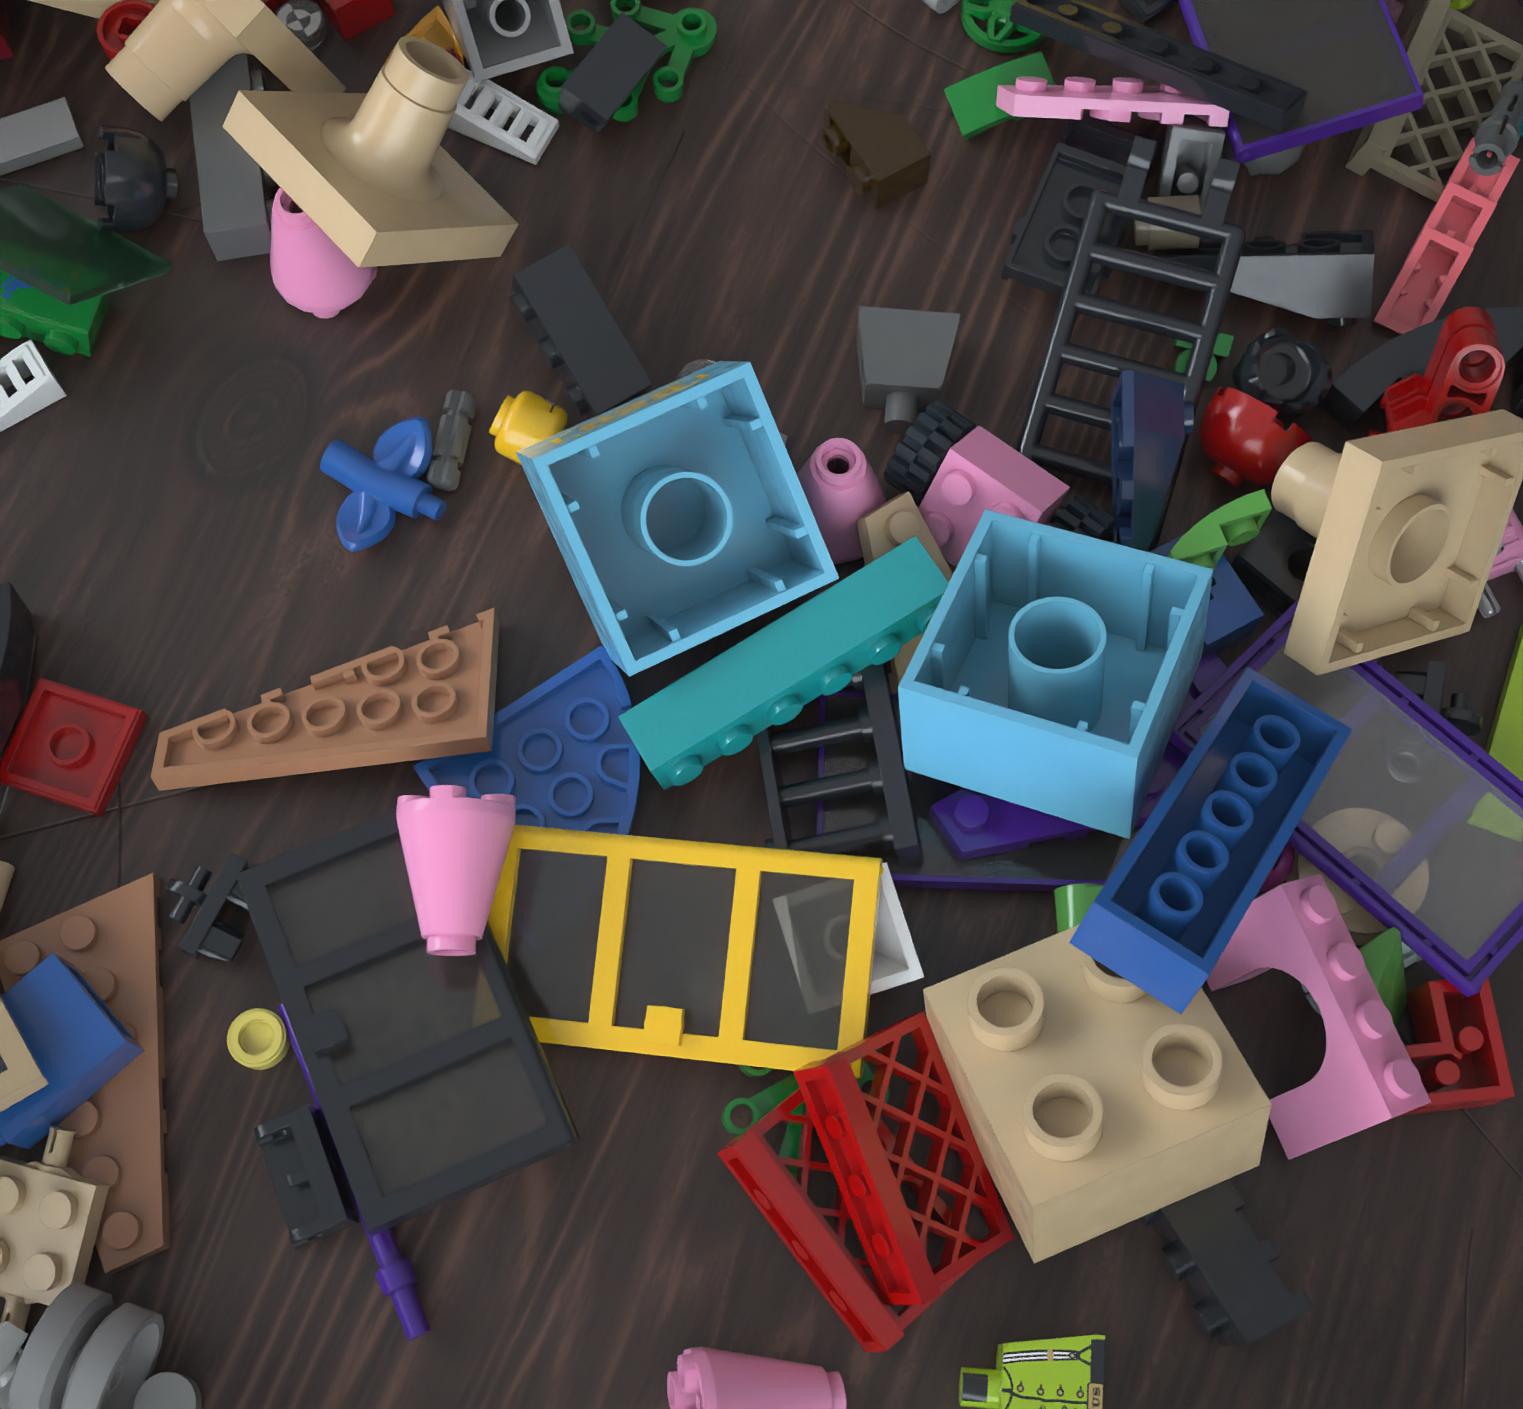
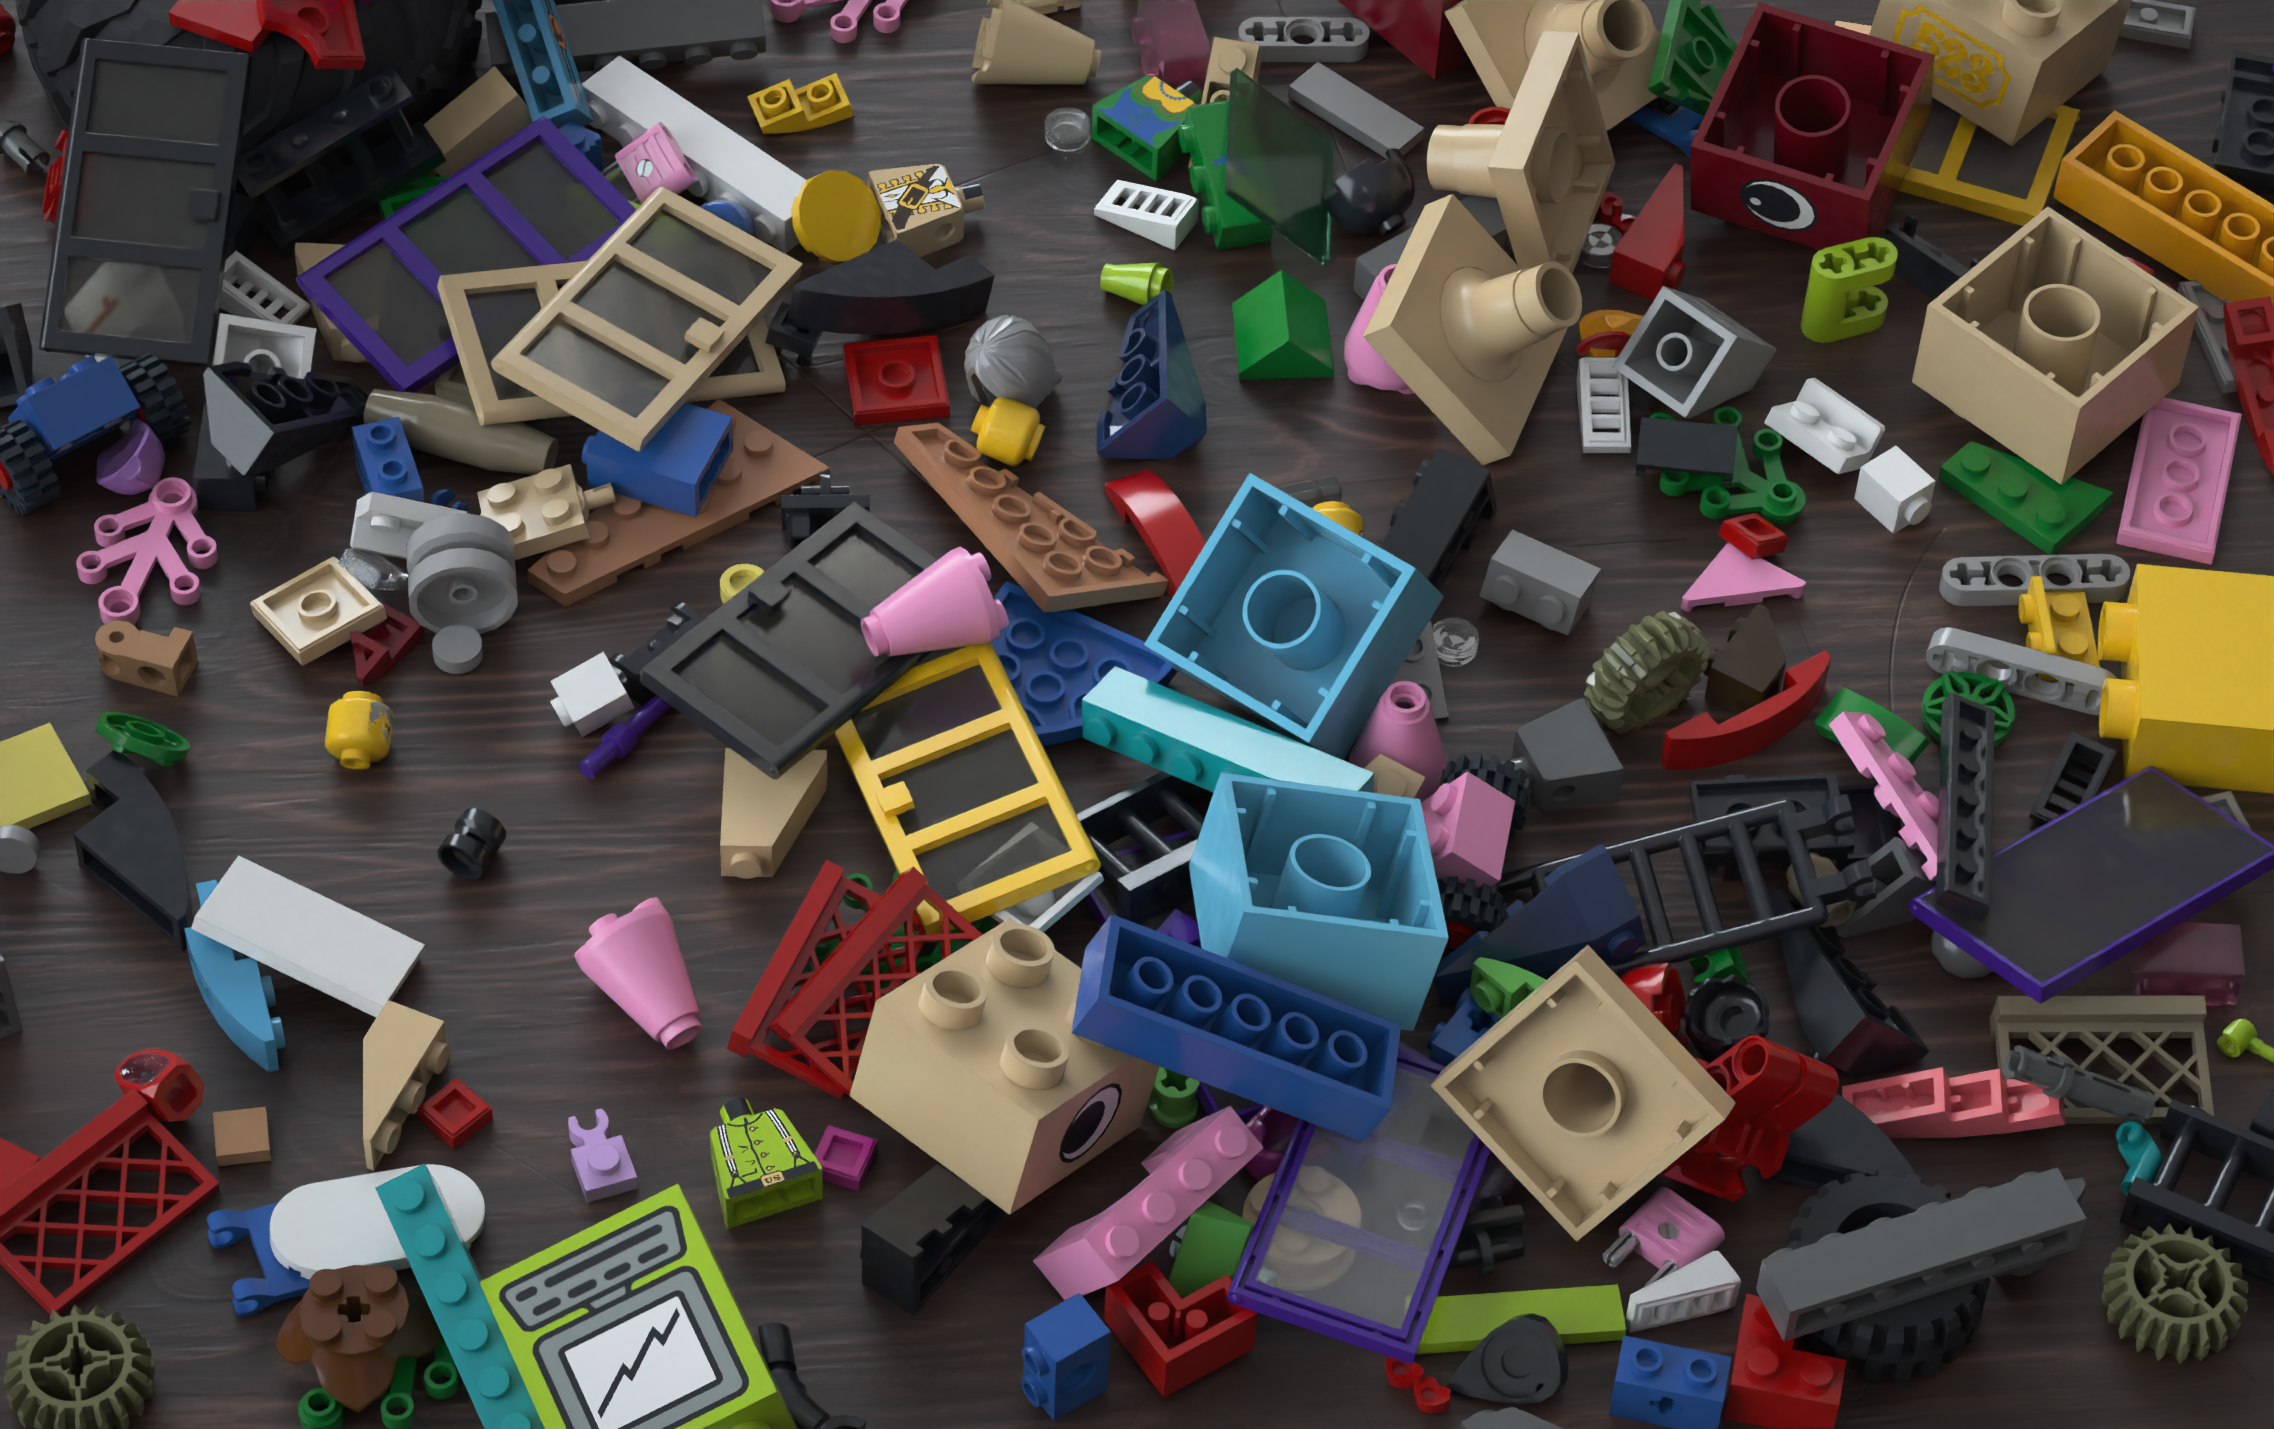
camera: 60 degrees right, 20 degrees down
(95, 447) = (1136, 281): none -> lime cone
(143, 625) = (1010, 362): none -> light grey hair
(218, 668) = (1008, 431): none -> yellow head
(237, 351) = (1282, 331): none -> green slope
(250, 504) = (1157, 393): none -> dark blue wedge
(332, 1288) = (590, 695): none -> white brick
(383, 483) = (1225, 465): blue plant -> none
(441, 579) = (1160, 522): none -> red slope
(591, 1179) = (766, 814): none -> tan slope
(690, 274) = (1540, 582): none -> light grey brick
(725, 73) = (1753, 536): none -> red tile
(762, 111) = (1740, 581): none -> bright pink tile
(859, 236) = (1647, 672): none -> olive gear
(938, 135) = (1706, 744): none -> red slope
(1062, 1292) = (845, 1157): none -> dark pink tile
(1450, 1192) = (1065, 1357): none -> blue brick

